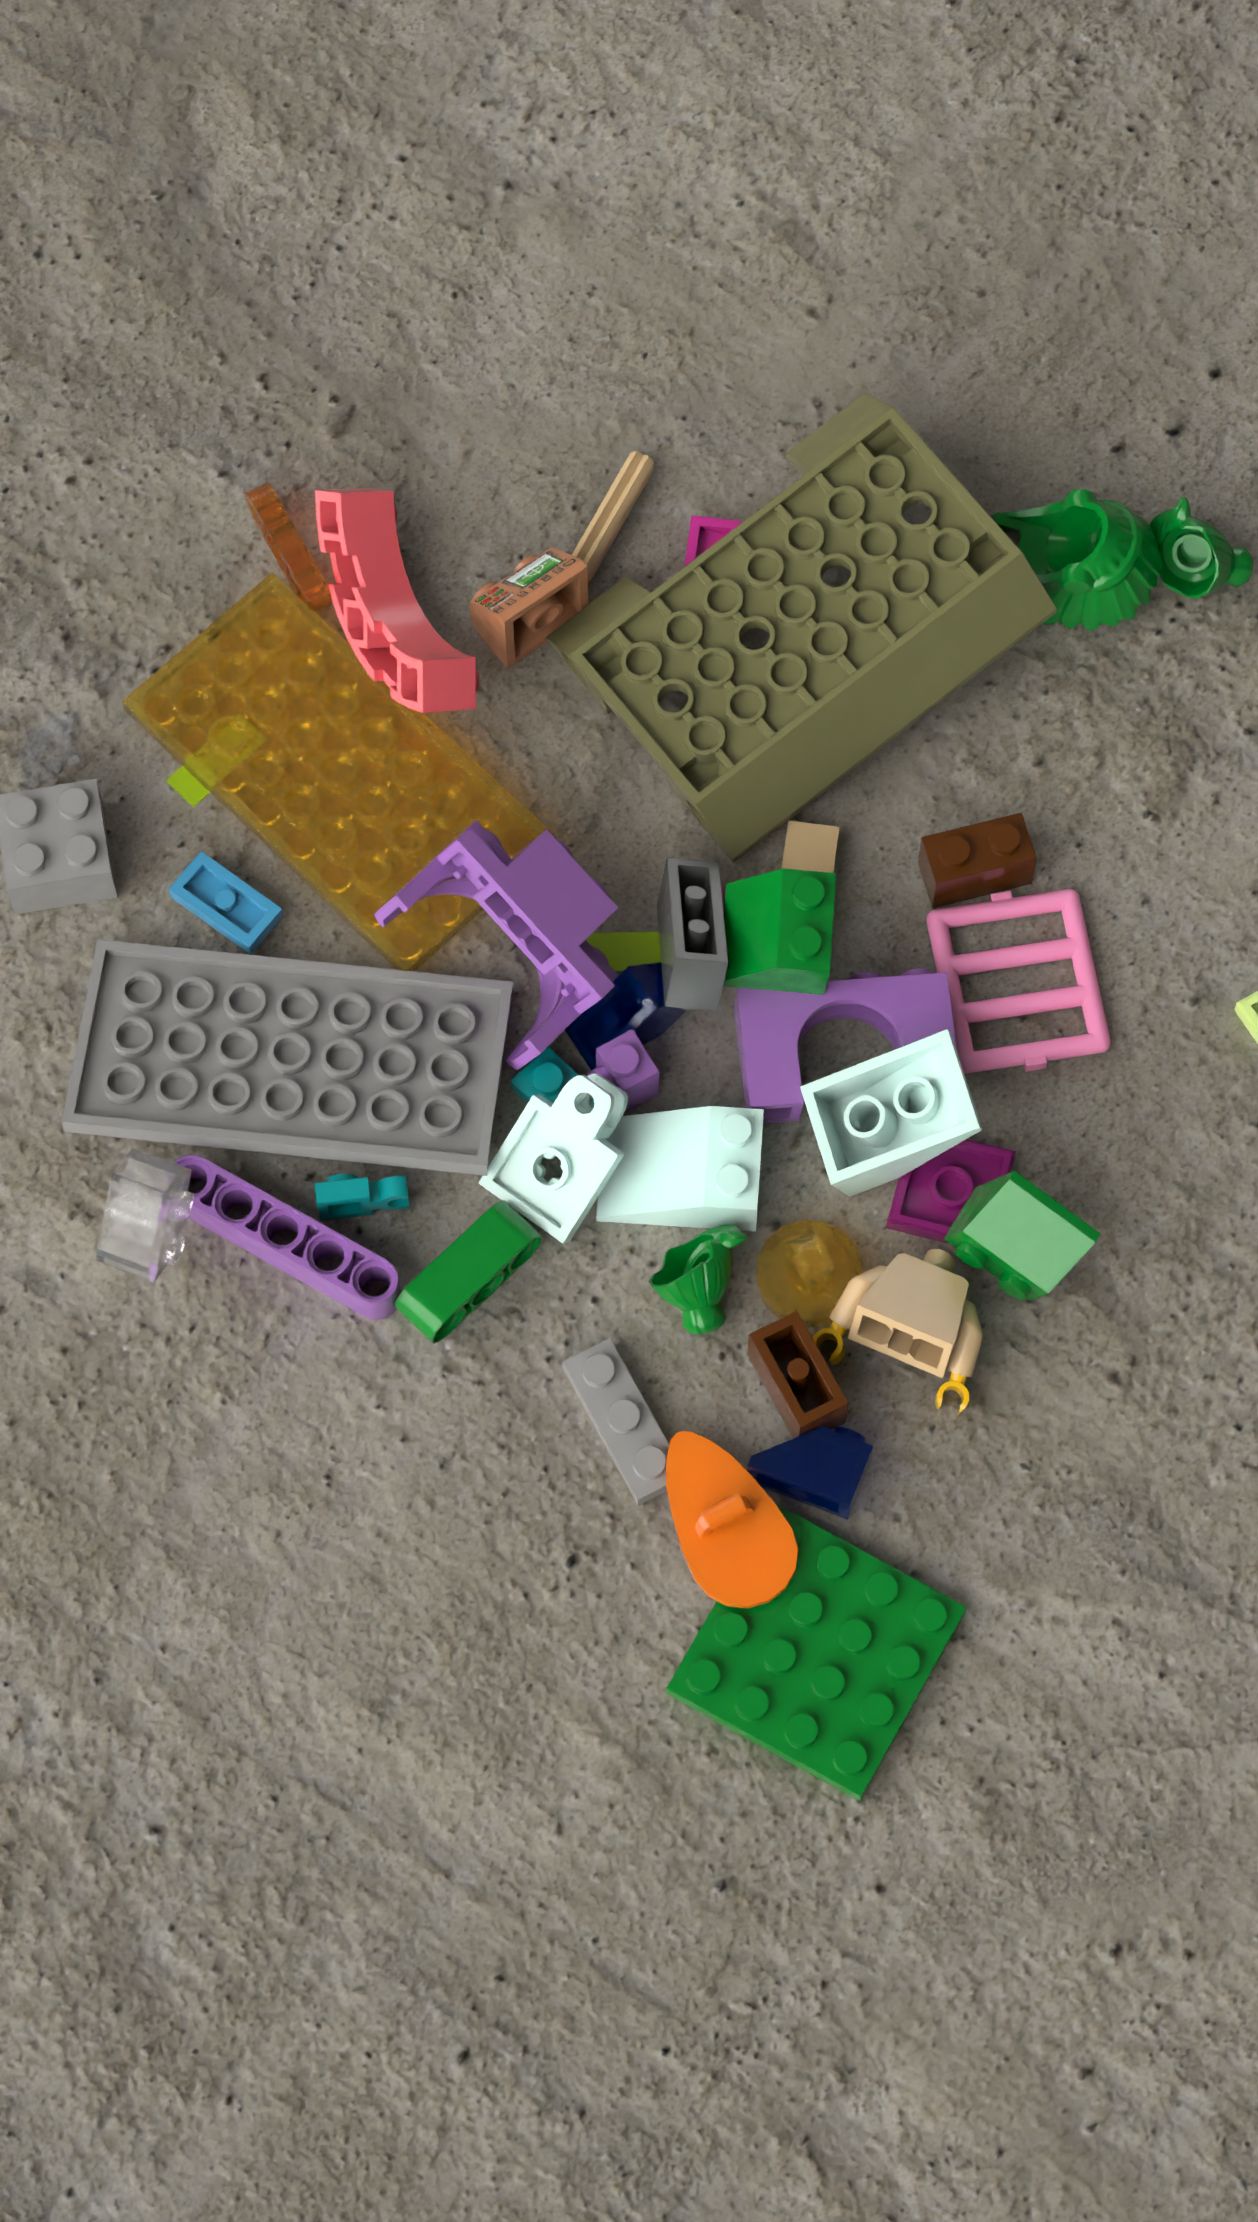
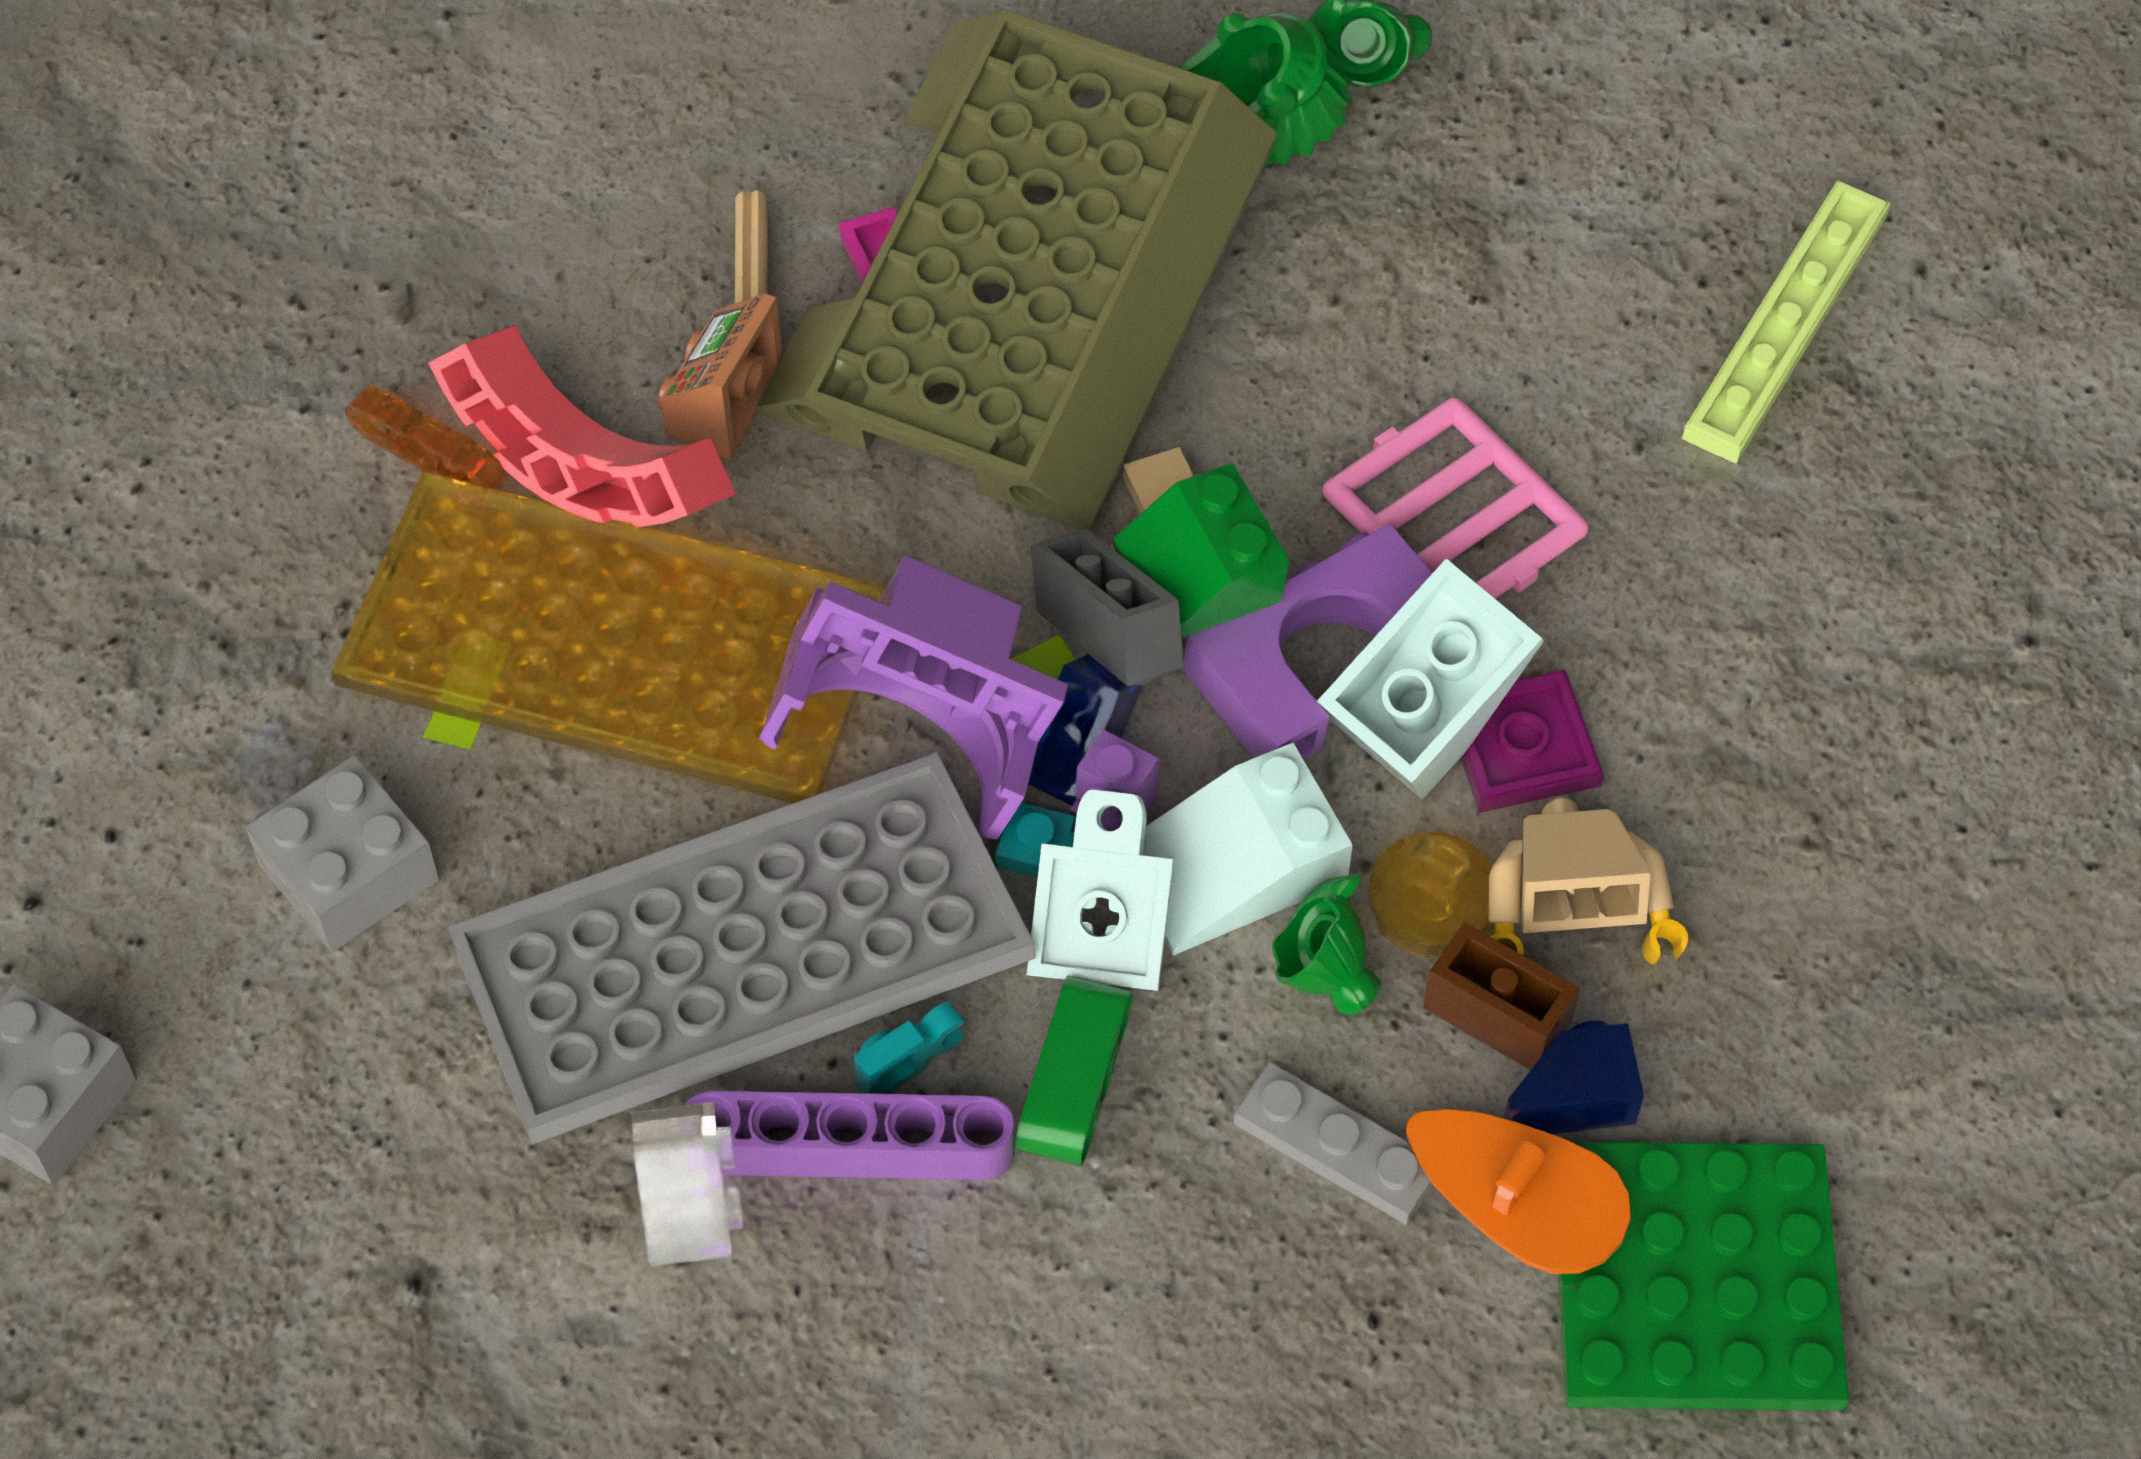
camera: 30 degrees left, 10 degrees down
(226, 902) = (569, 823): dark azure plate -> none
(977, 860) = (1342, 410): reddish brown brick -> none
(1019, 1236) = (1638, 735): slope -> none

